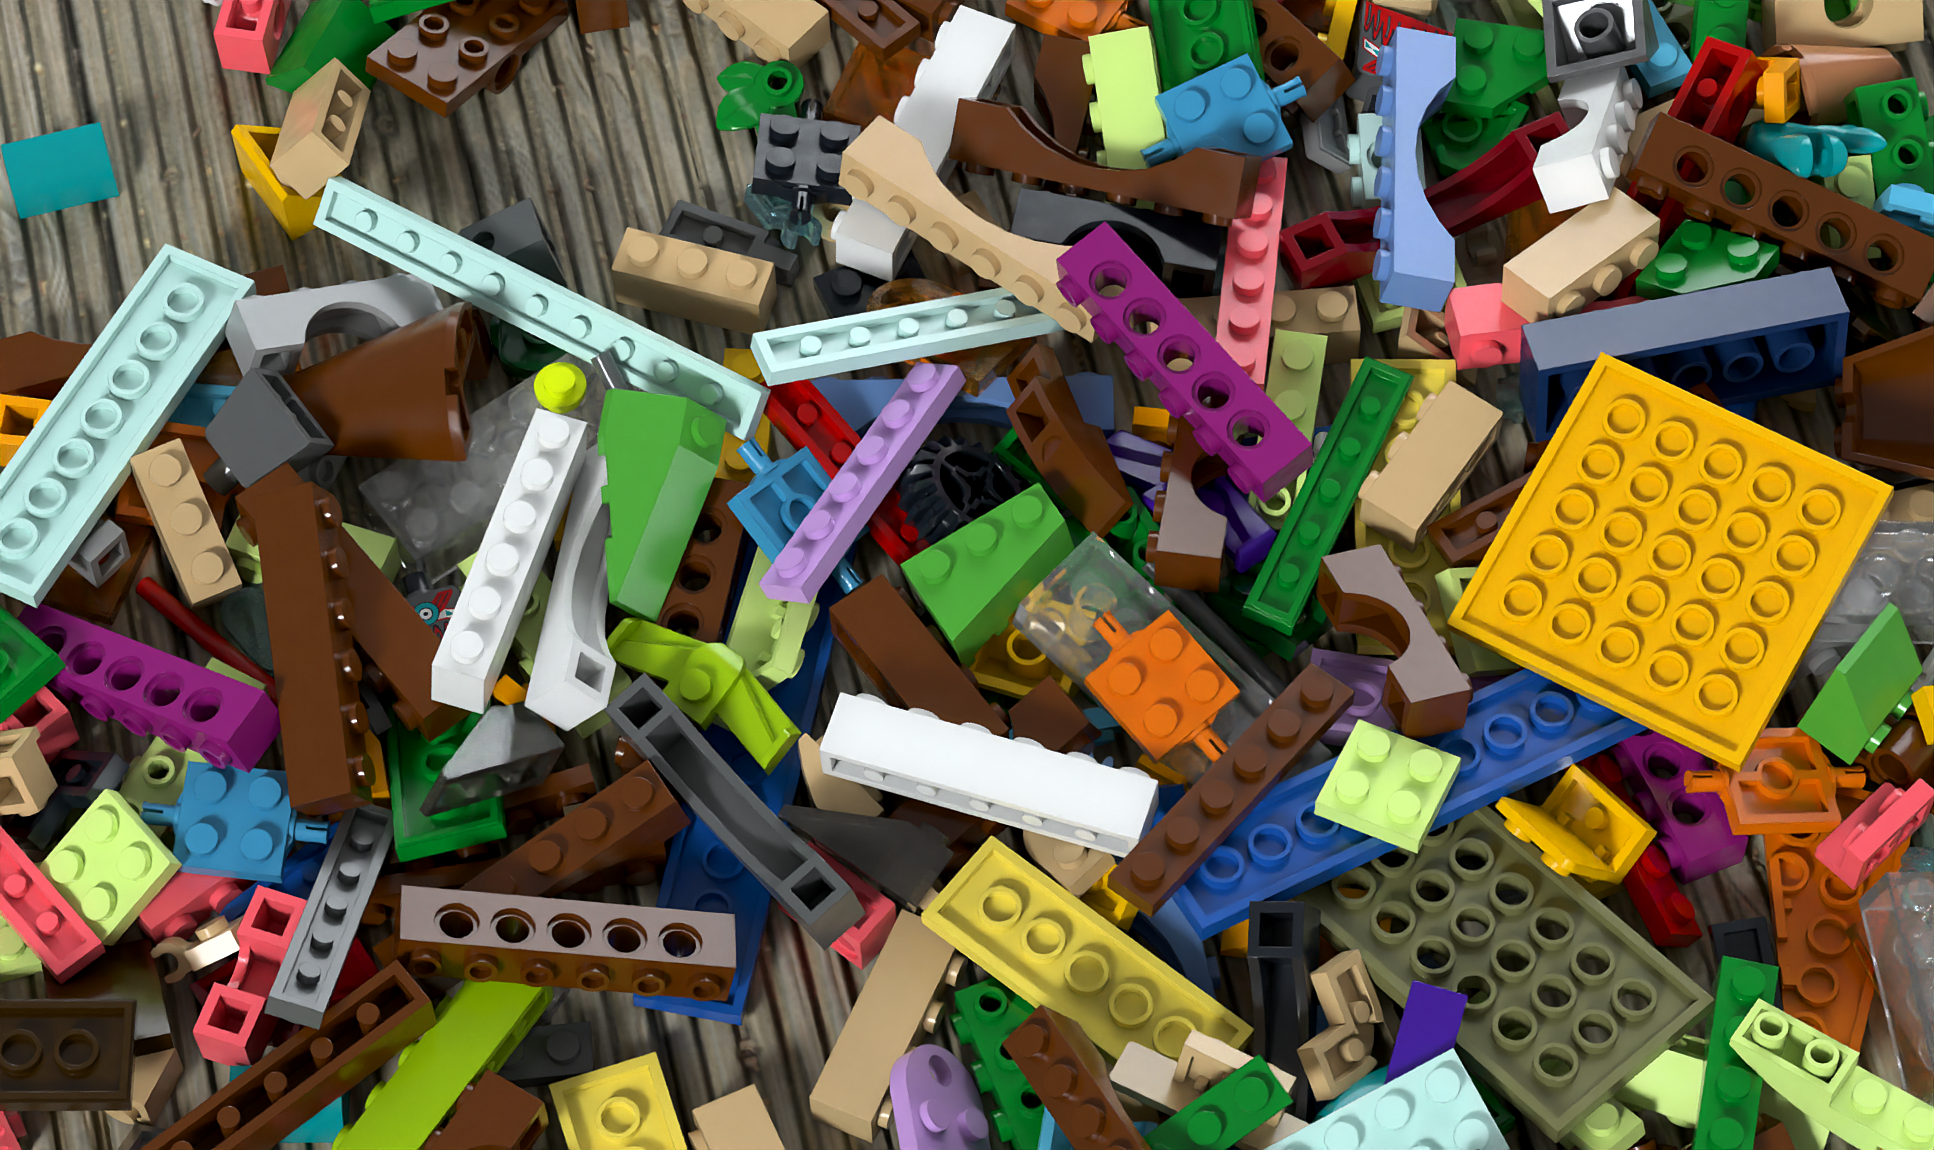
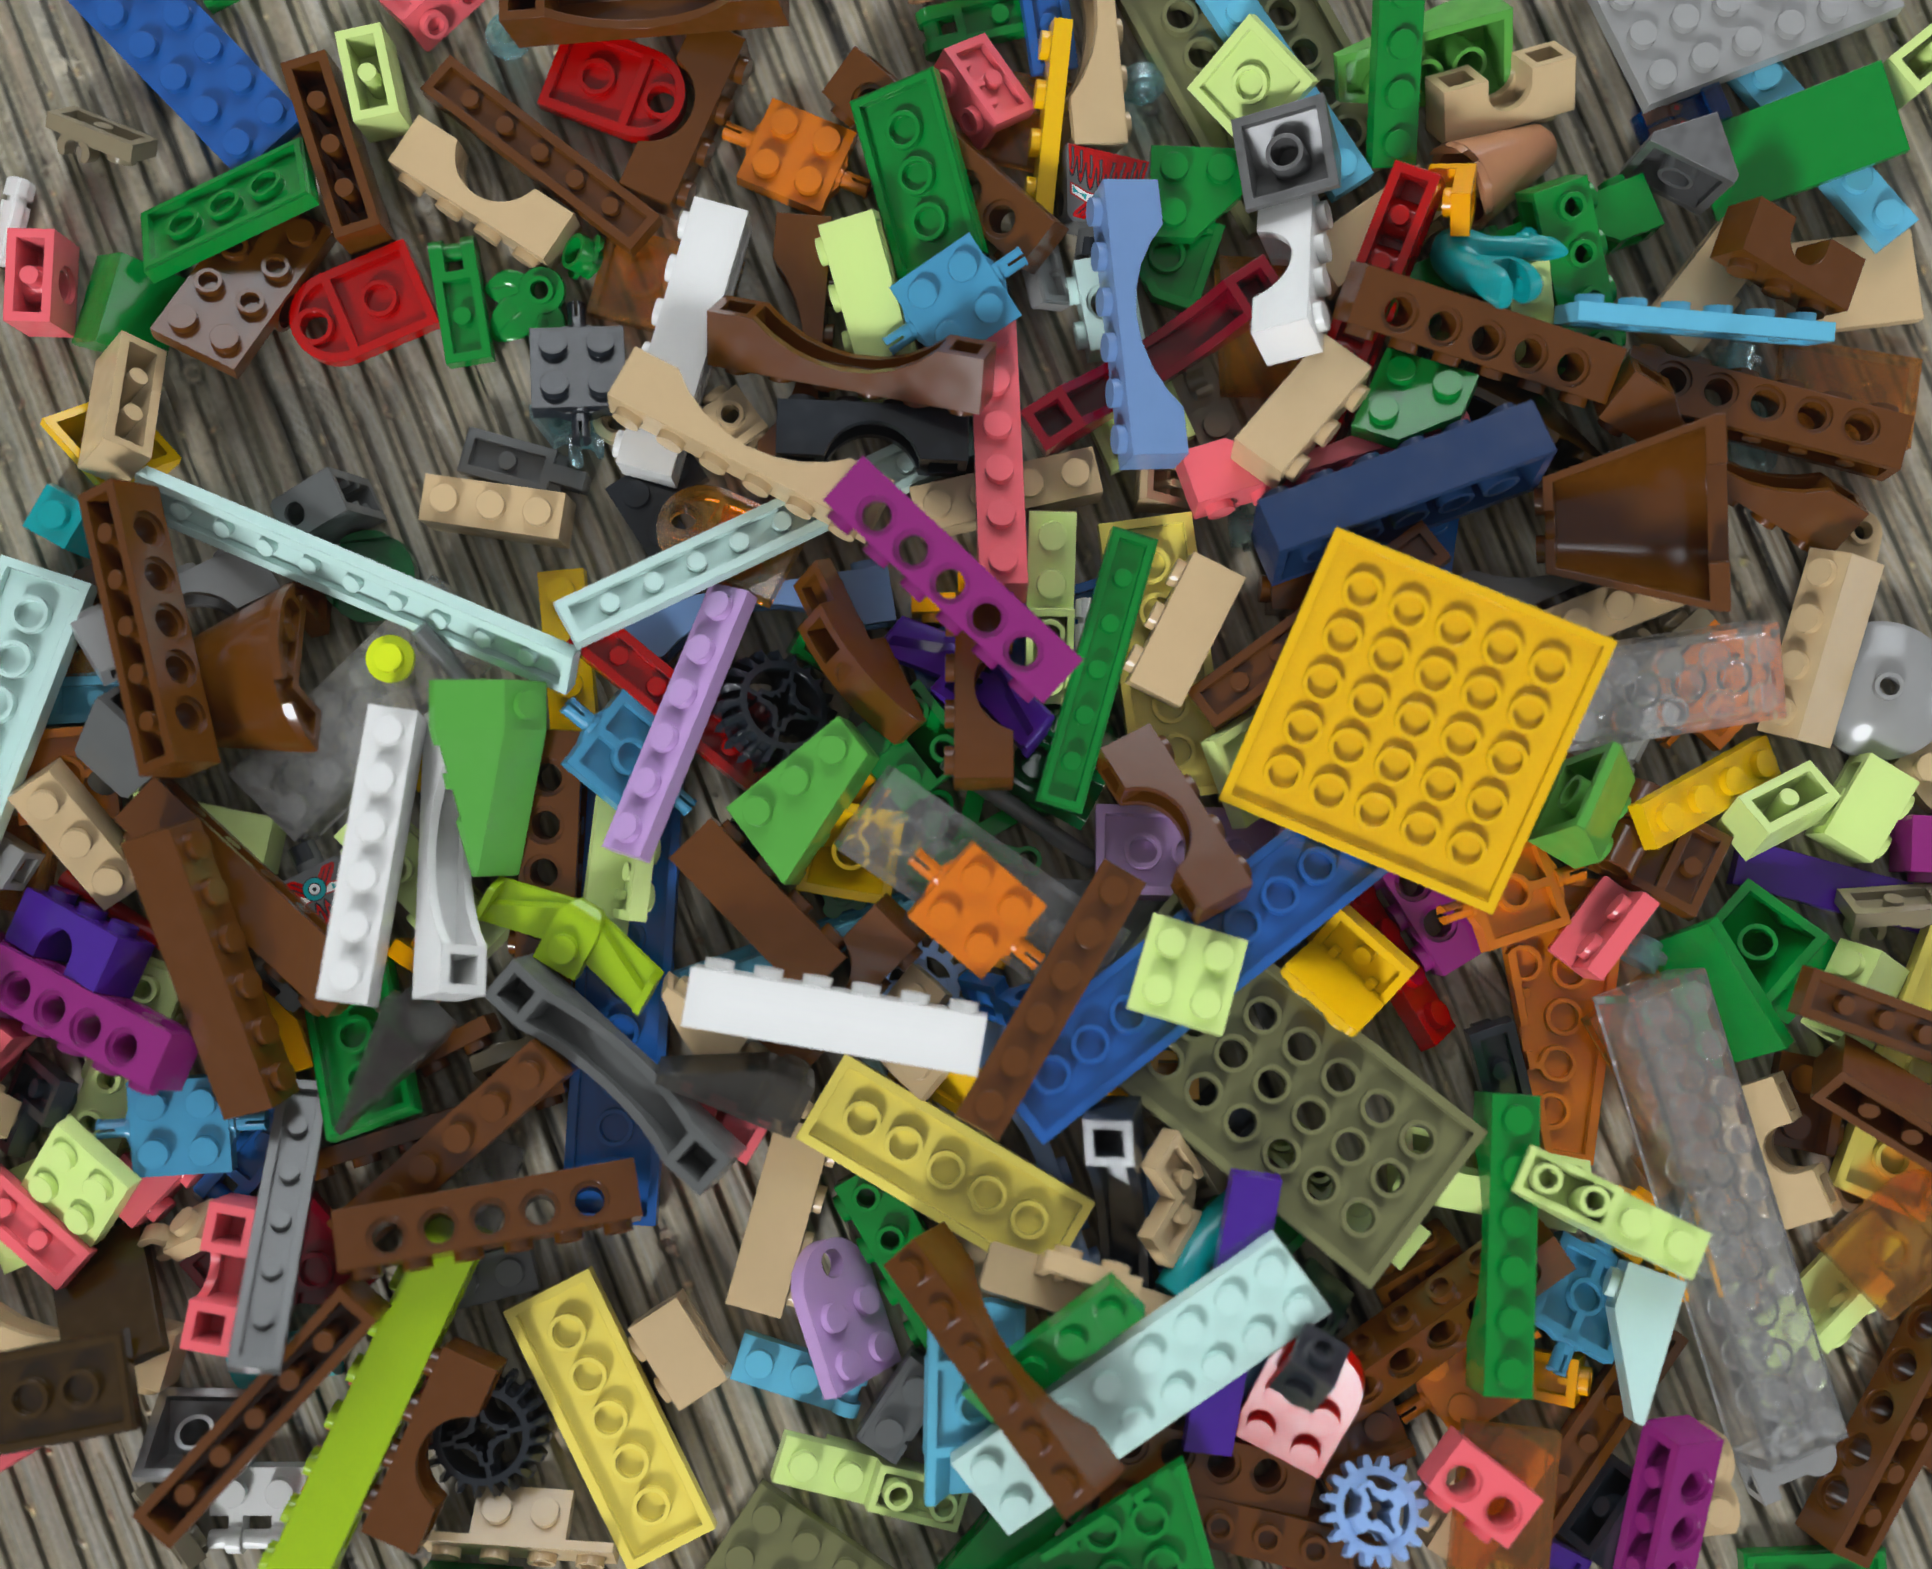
camera: 15 degrees left, 25 degrees up
(165, 621) = (99, 951): none -> dark purple arch
(242, 229) = (59, 520): none -> teal slope
(319, 313) = (148, 629): none -> reddish brown brick
(585, 79) = (368, 307): none -> red plate
(690, 88) = (461, 303): none -> green plate
(828, 57) = (583, 255): none -> green plate

